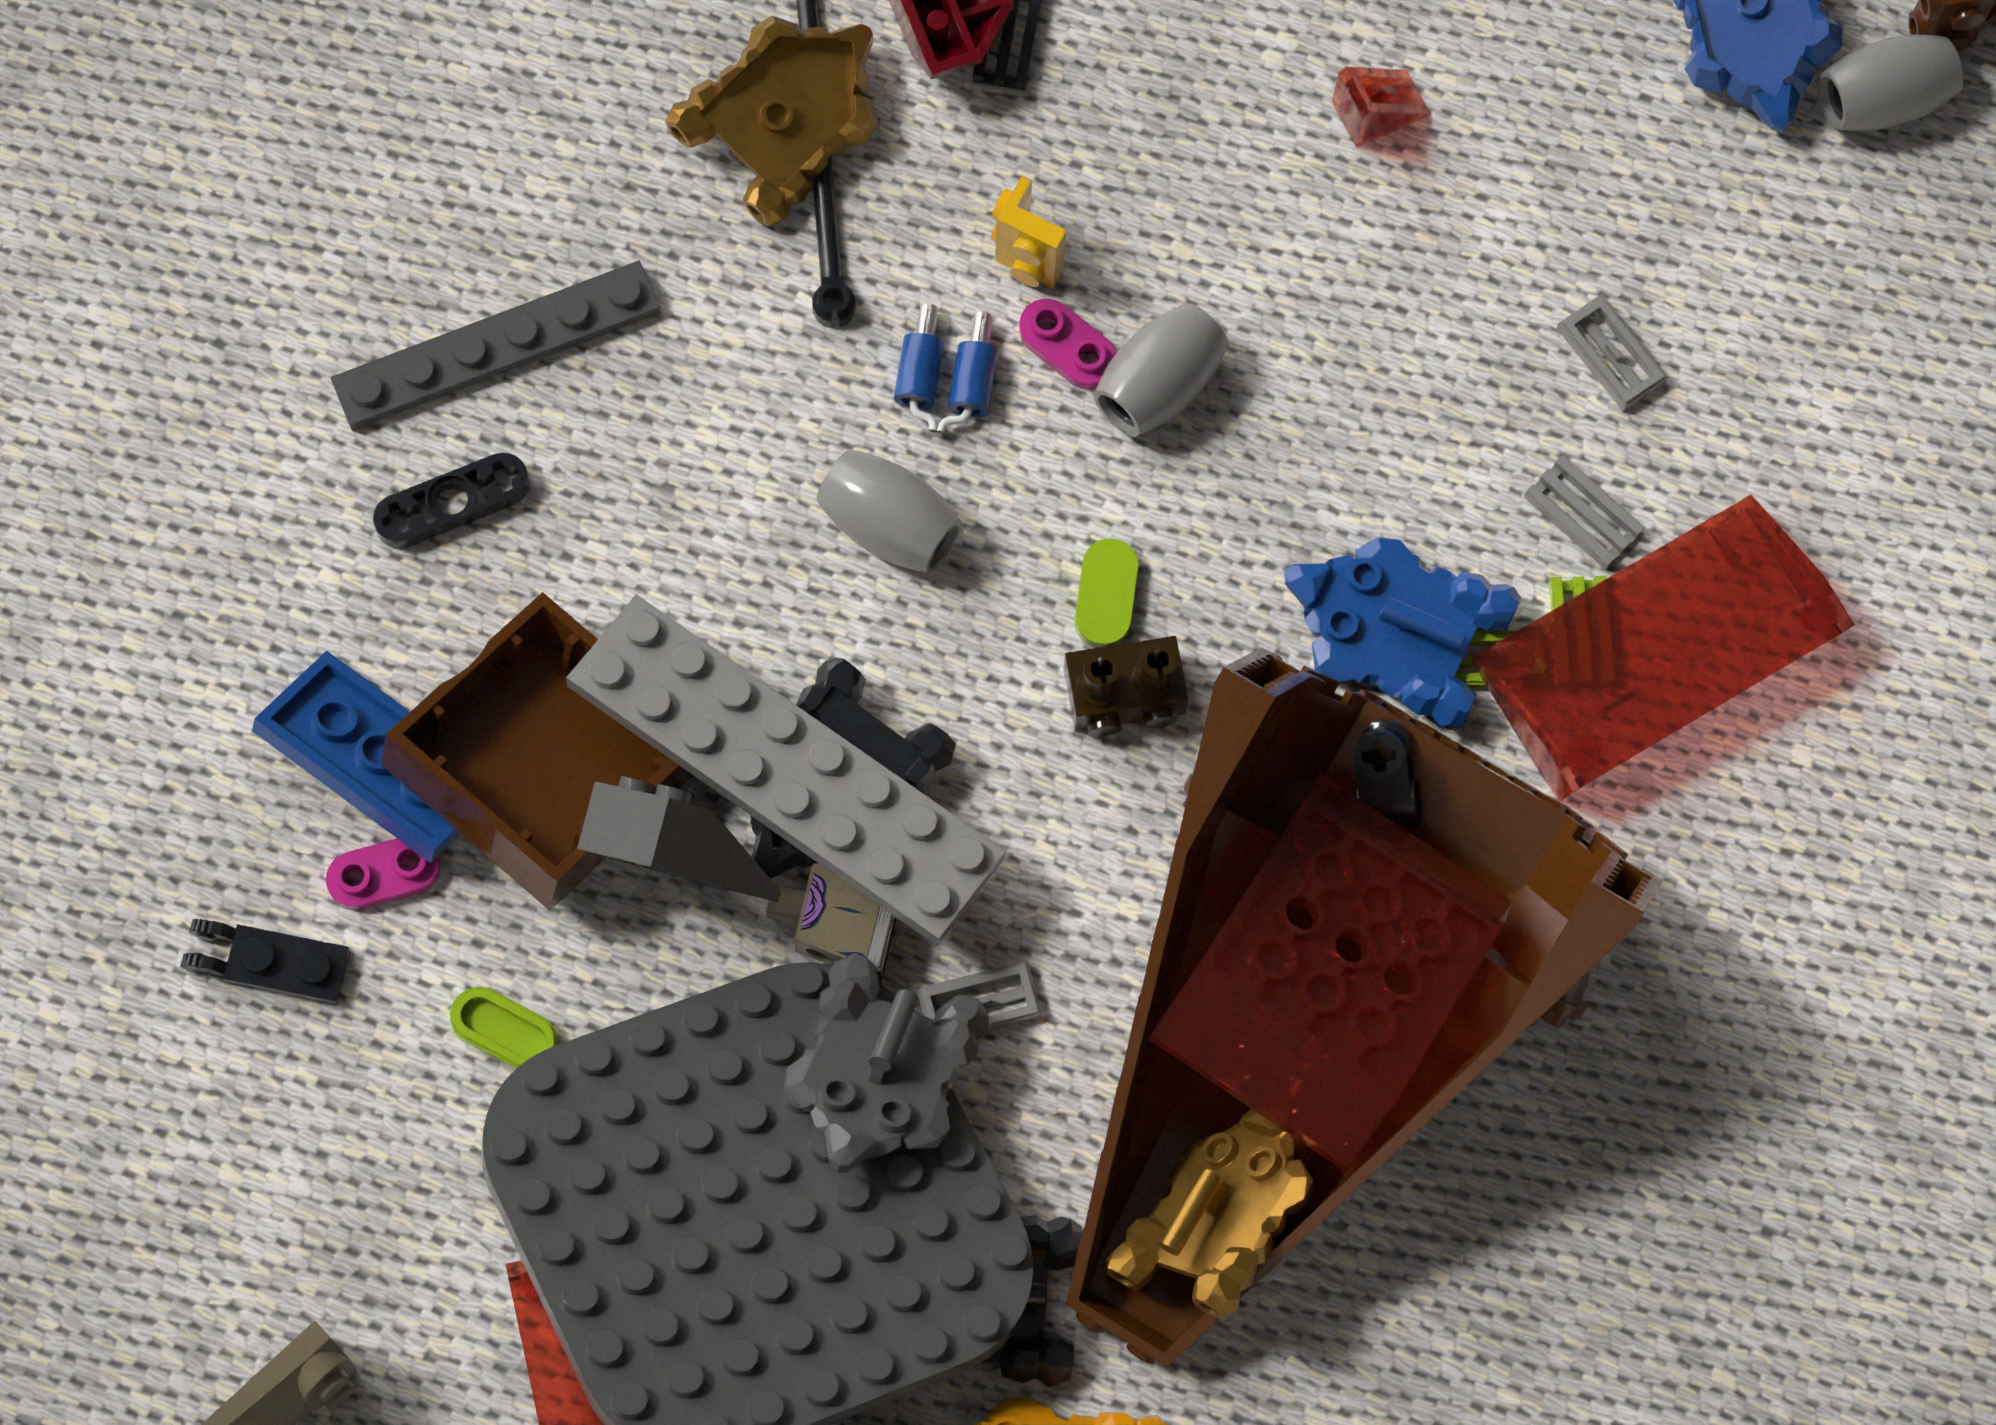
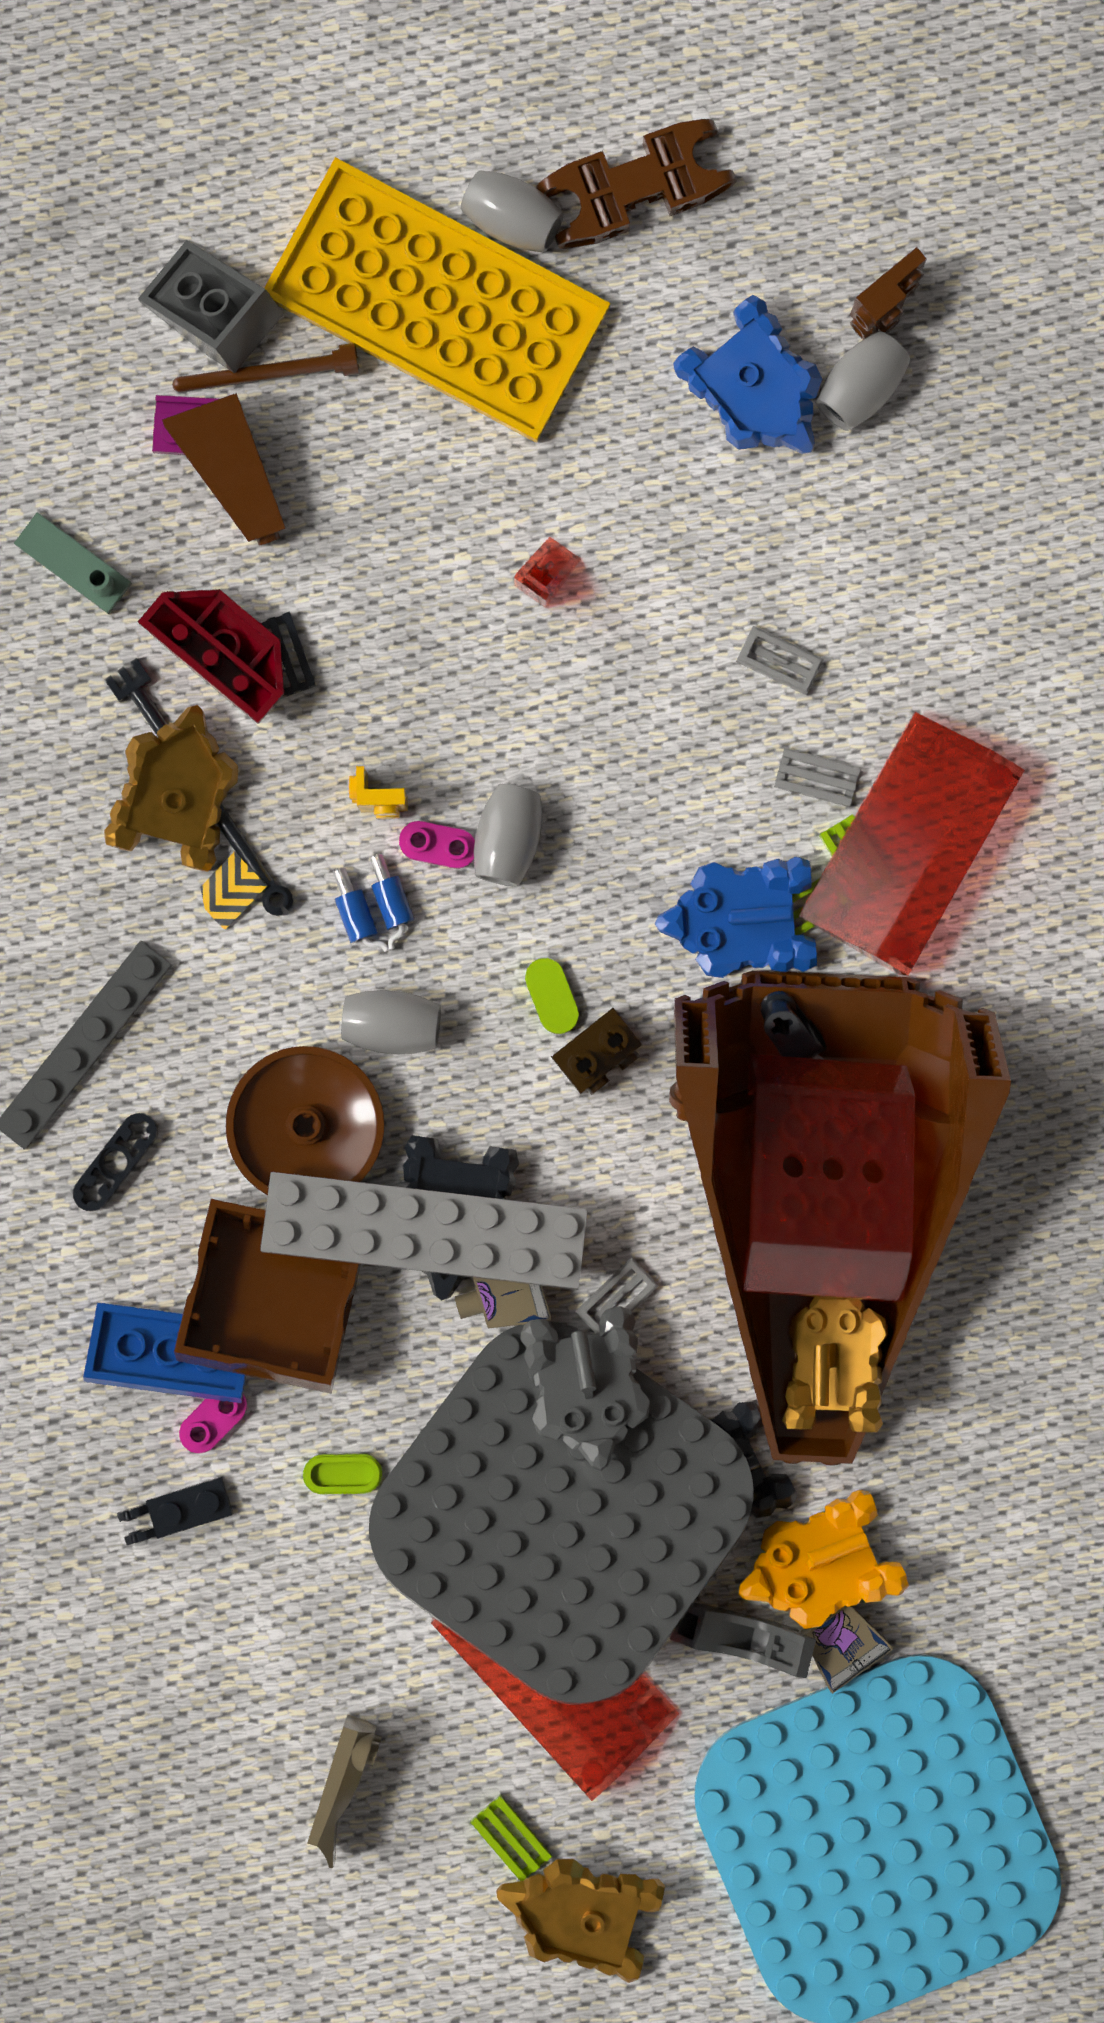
camera: 25 degrees left, 15 degrees up
(669, 837) = (382, 1326): dark grey slope -> none
(720, 559) = (304, 1117): none -> reddish brown dish
(783, 263) = (230, 890): none -> sticker

